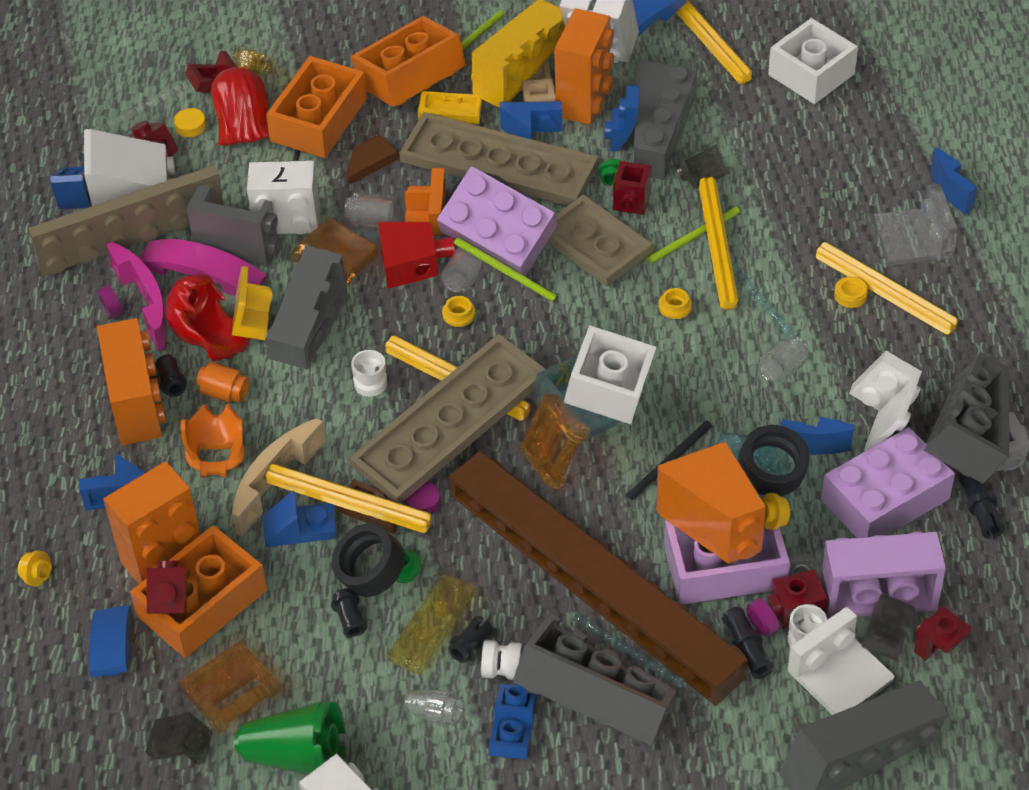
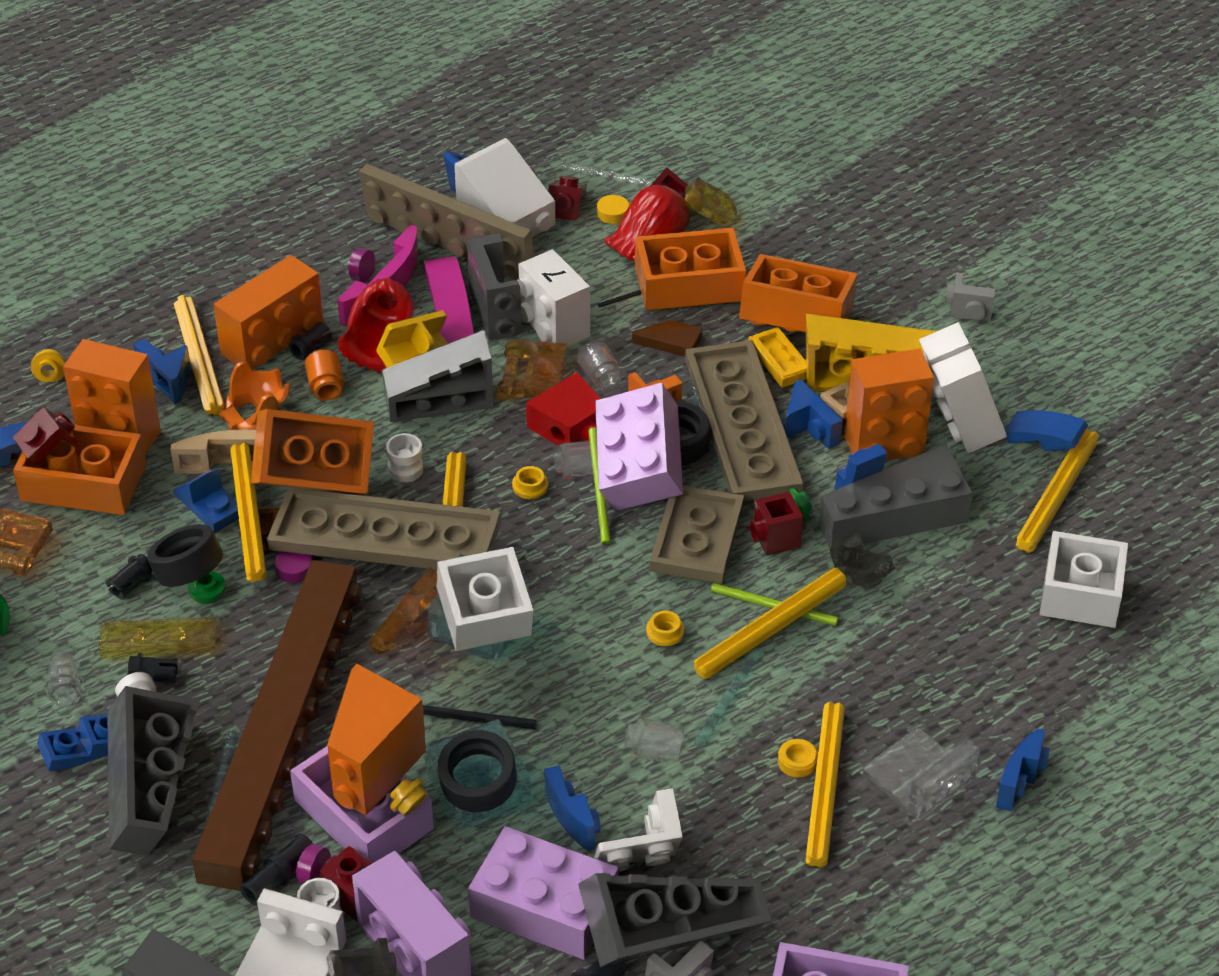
camera: 55 degrees right, 5 degrees down
(105, 455) = (199, 355): none -> yellow axle
(340, 418) = (312, 452): none -> orange brick

